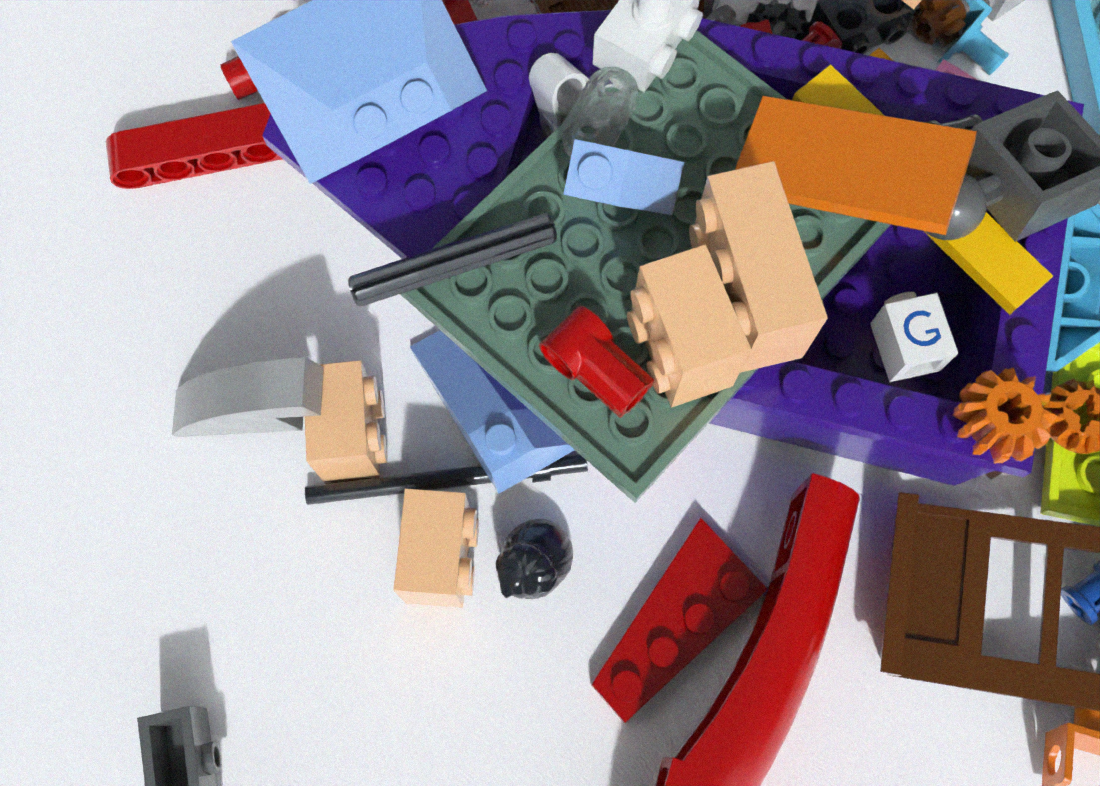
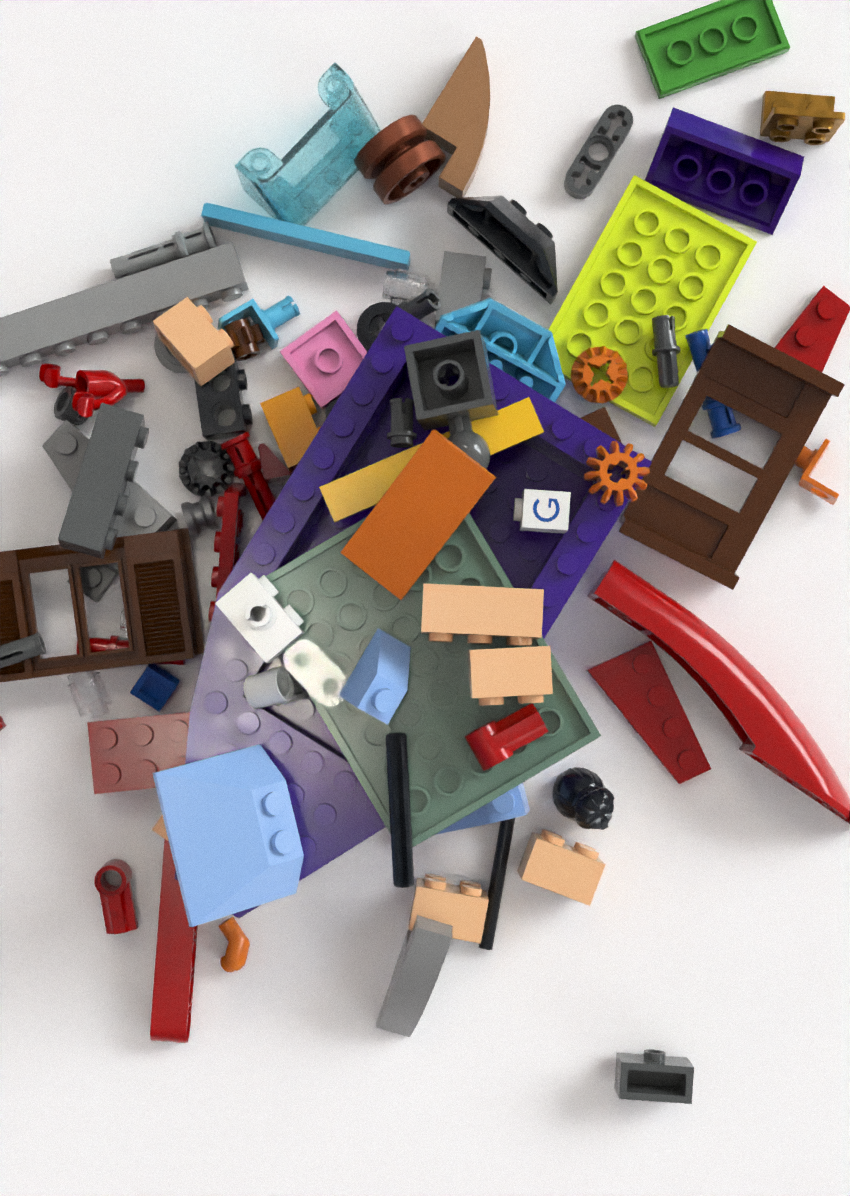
camera: 75 degrees left, 15 degrees up
(237, 207) = (237, 946): none -> orange arm

